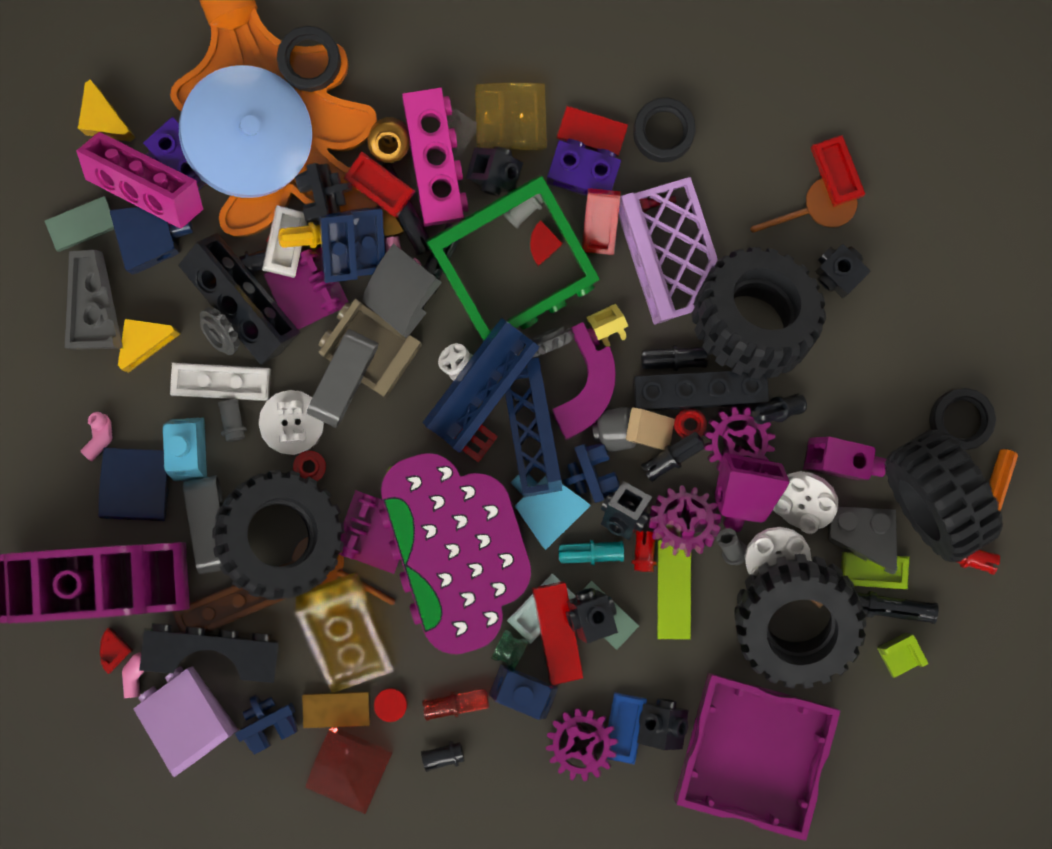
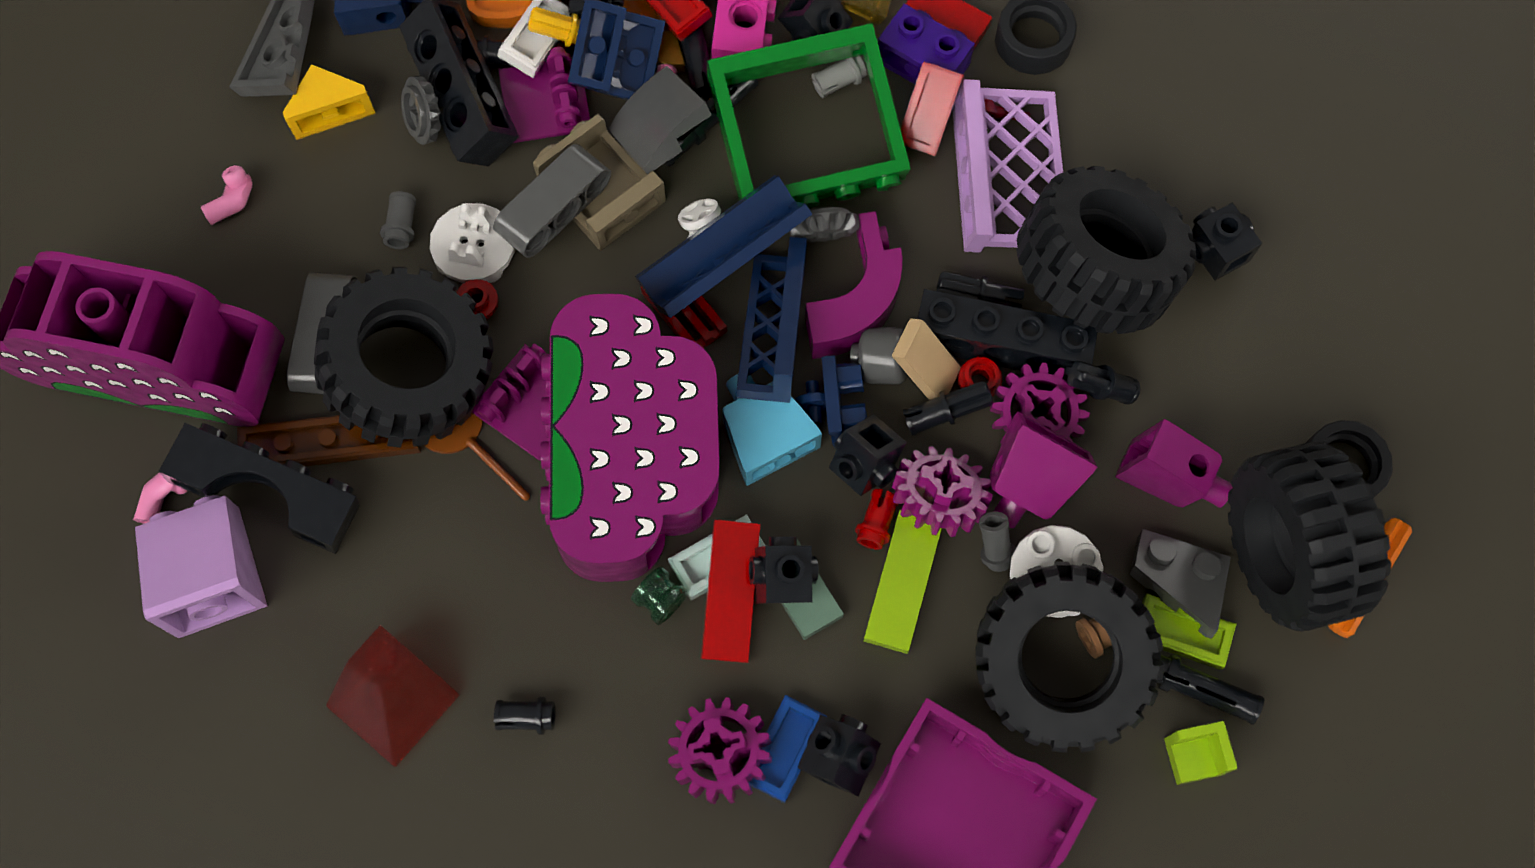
camera: 15 degrees right, 15 degrees down
(113, 650) = (143, 457): red tile -> none
(133, 485) = (251, 262): dark blue slope -> none
(185, 448) = (329, 225): medium azure torso -> none
(220, 381) = (395, 171): white tile -> none
(254, 734) = (301, 596): dark blue hips -> none
(336, 709) = (404, 613): pearl gold tile -> none
(343, 632) = (447, 514): clear yellow slope -> none
(390, 705) = (478, 627): red tile -> none
(455, 704) = (563, 649): clear red axle -> none
(523, 692) = (663, 657): dark blue torso -> none
(543, 243) = (851, 122): red tile -> none
(591, 552) = (806, 502): teal axle -> none
(608, 322) = (908, 228): light yellow tile -> none
(817, 510) = (1126, 524): white plate -> none
(819, 208) = (1218, 166): dark orange piece -> none
(837, 170) = (1241, 133): red tile -> none
(980, 560) = (1330, 652): red pin -> none

